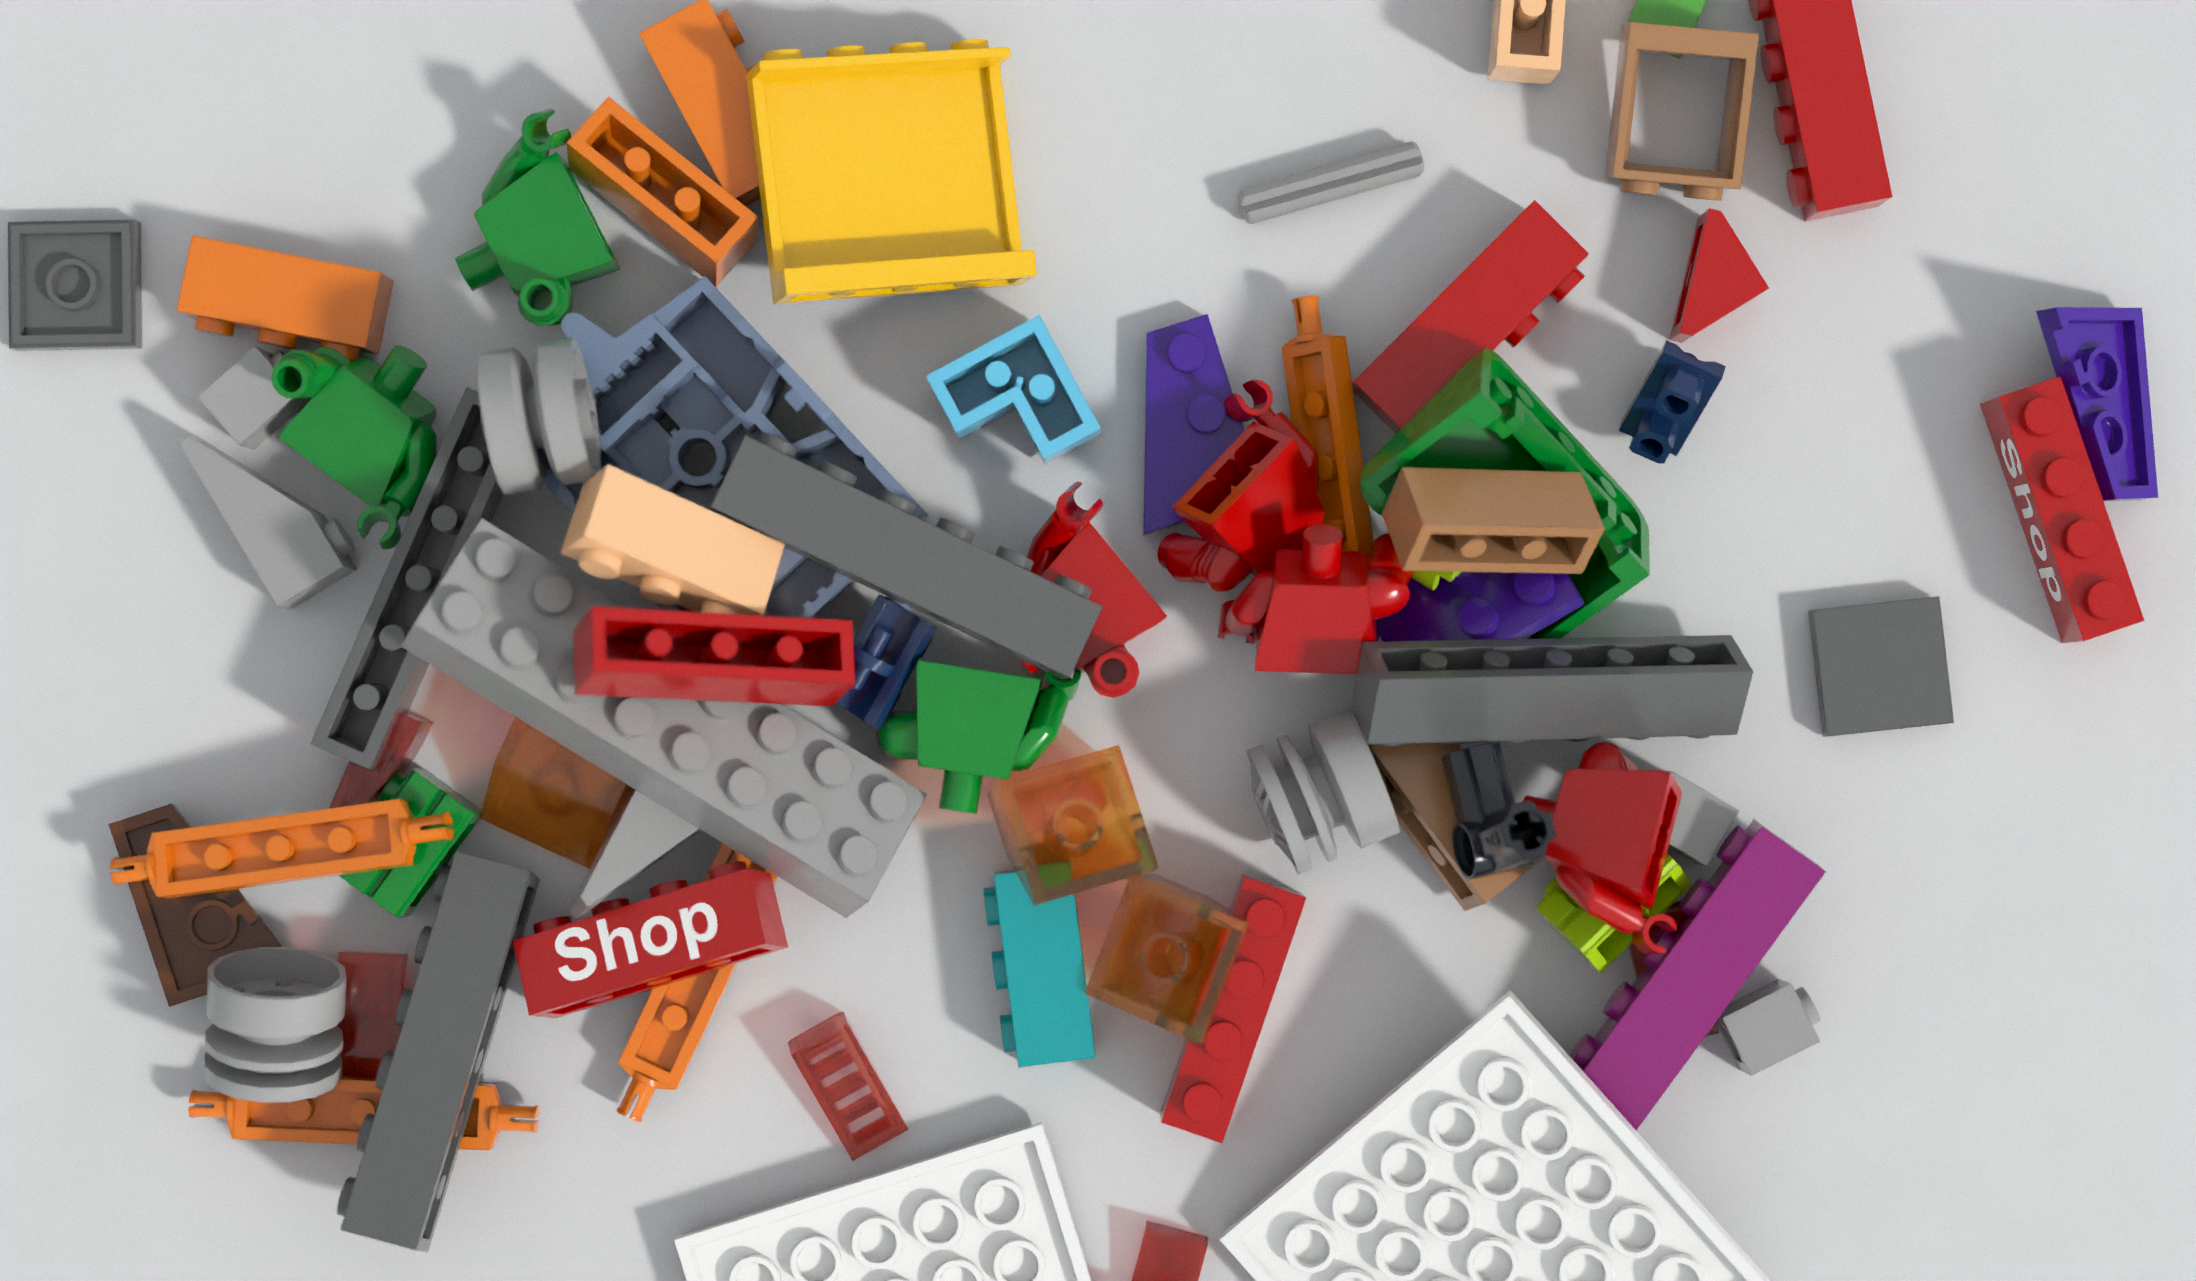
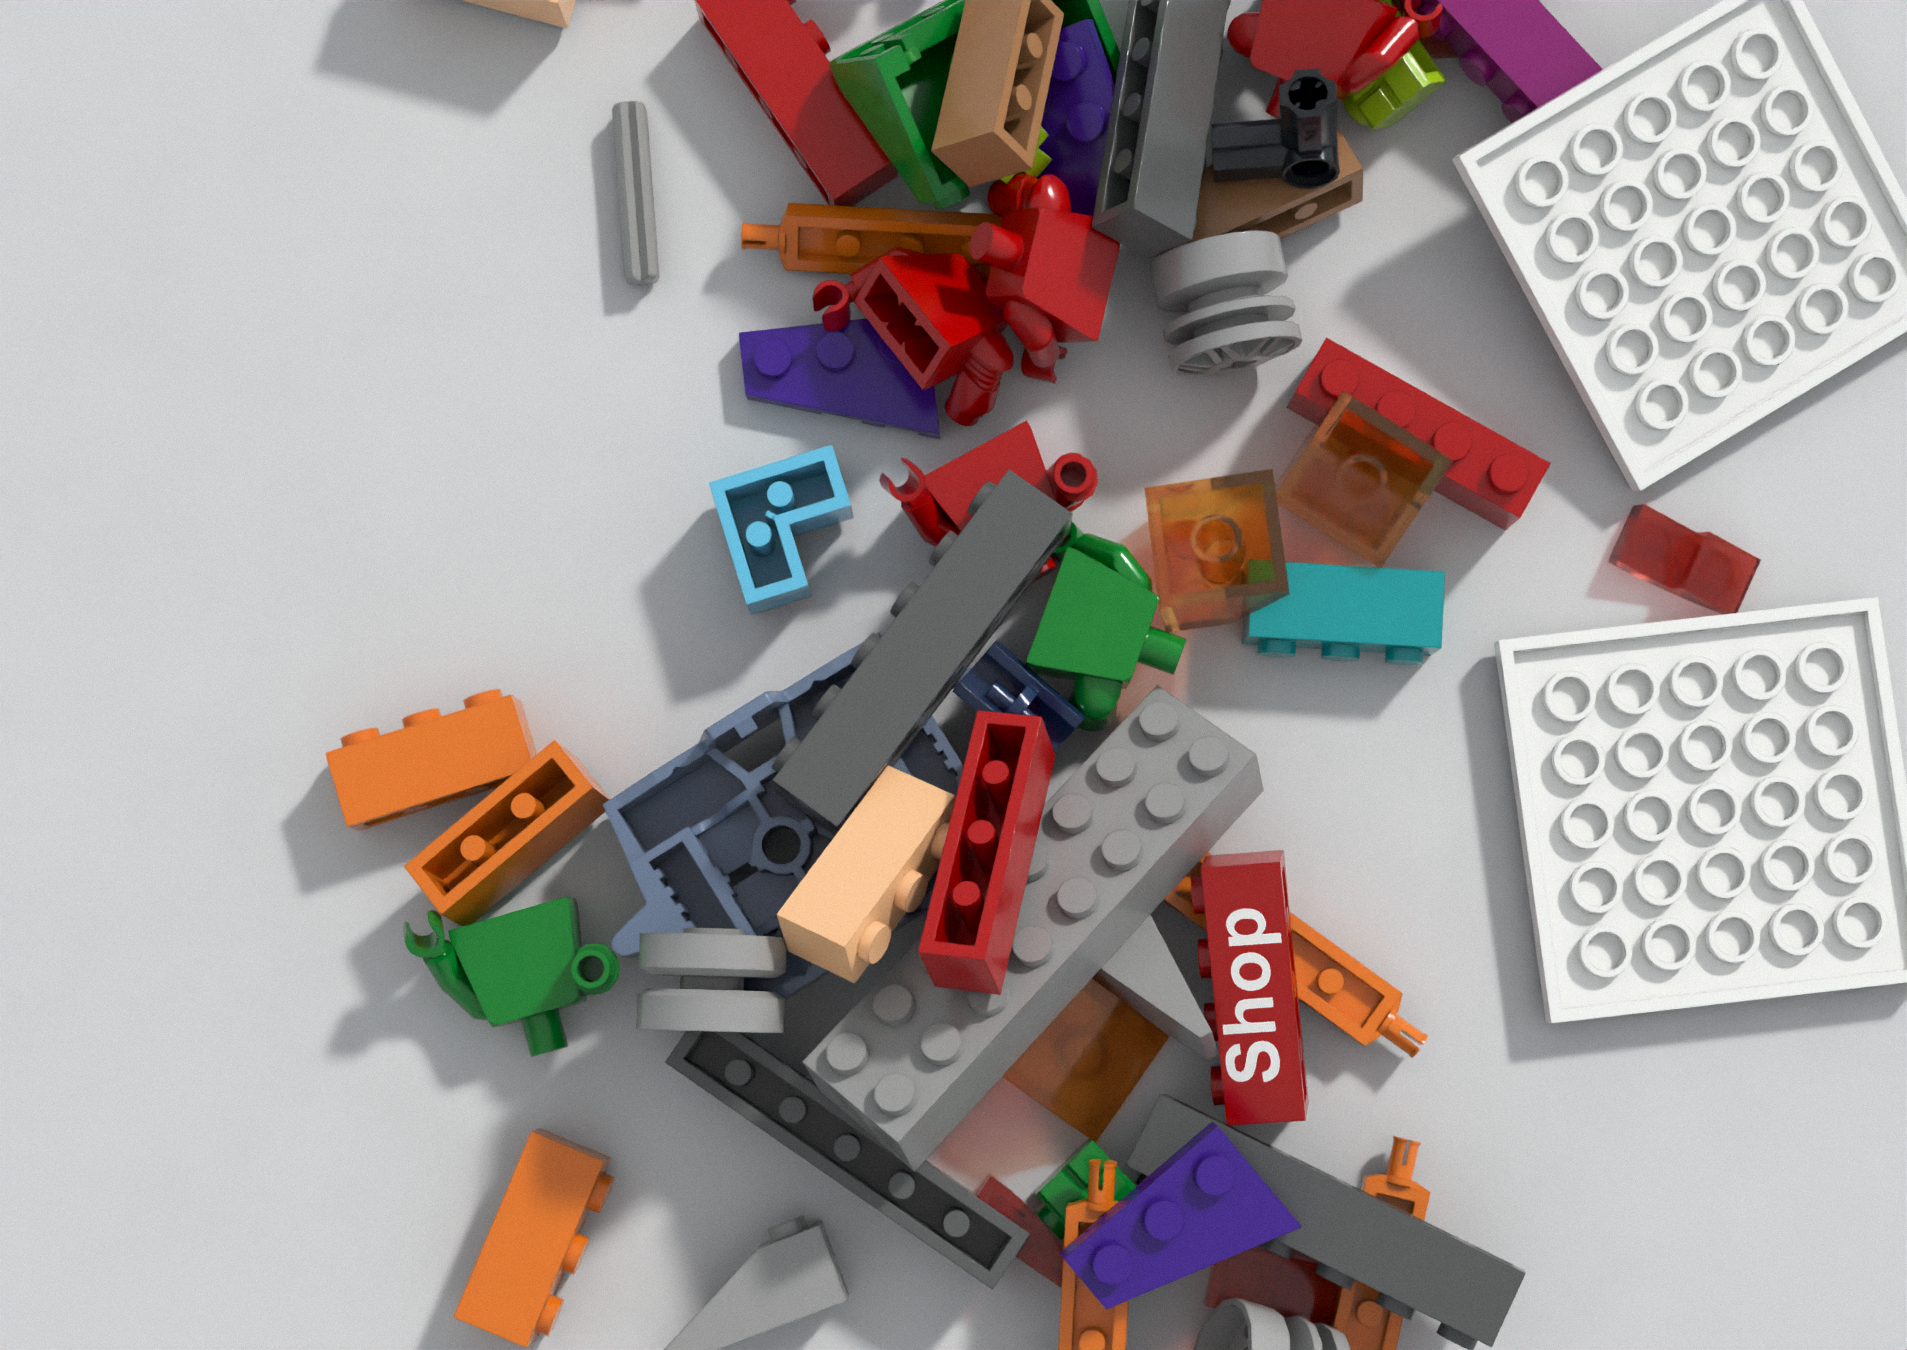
camera: 80 degrees left, 5 degrees down
(248, 402) = (628, 1285): light grey brick -> none
(363, 427) = (684, 1178): green torso -> none
(404, 909) = (1179, 1221): none -> dark purple wing
(818, 1040) = (1388, 842): clear red slope -> none
(885, 172) = (536, 611): yellow panel -> none

